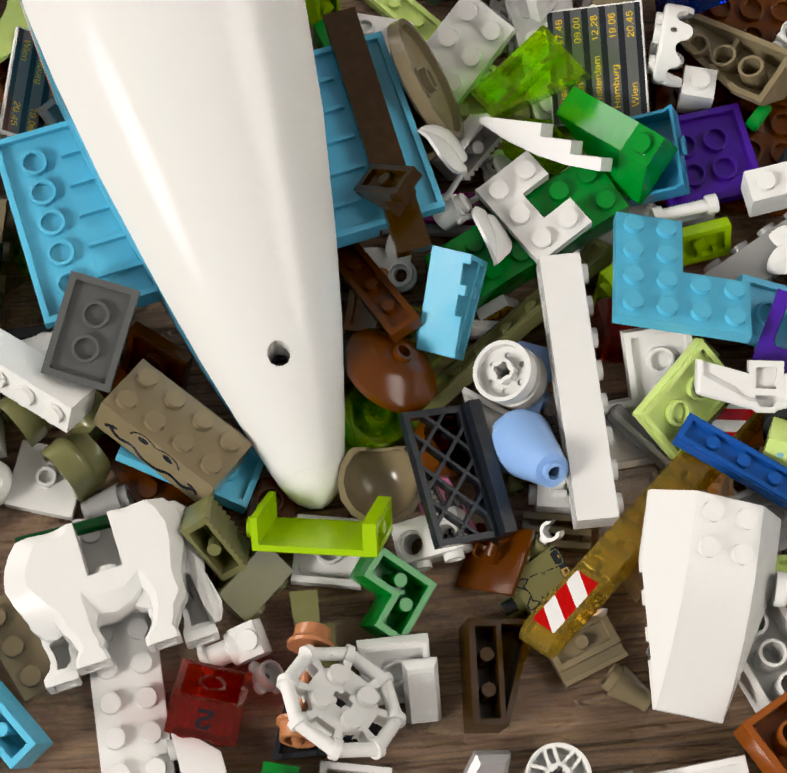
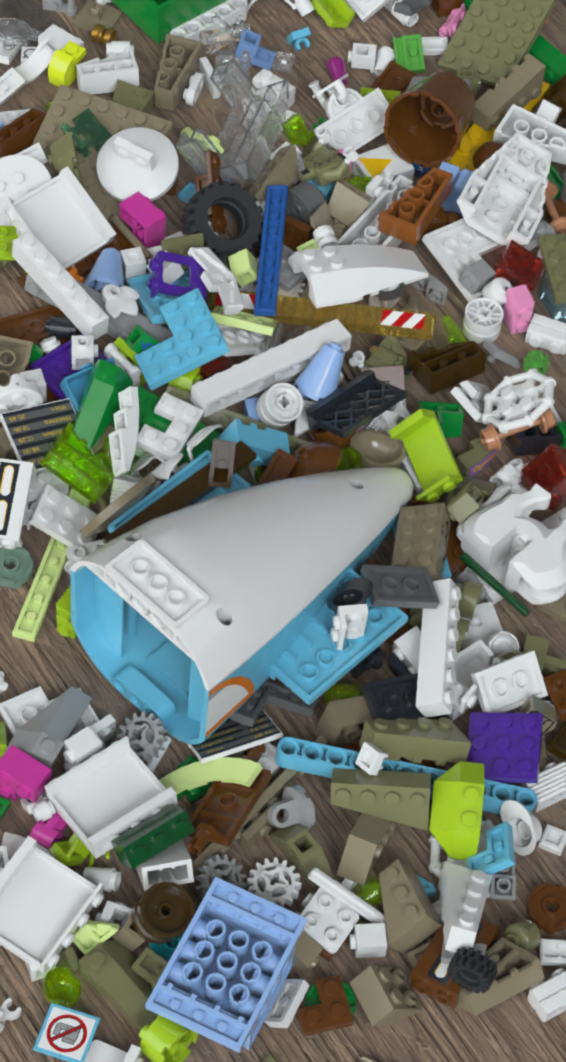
camera: 120 degrees left, 15 degrees down
(51, 215) = (349, 623): none -> white bracket
(94, 244) = (351, 593): none -> black piece
(546, 723) = (454, 333): none -> clear neon green plate
(651, 740) = (434, 289): none -> light grey slope
(703, 246) = (141, 340): none -> green brick
(721, 164) = (83, 351): none -> white brick
(765, 144) = (49, 344): none -> white plate

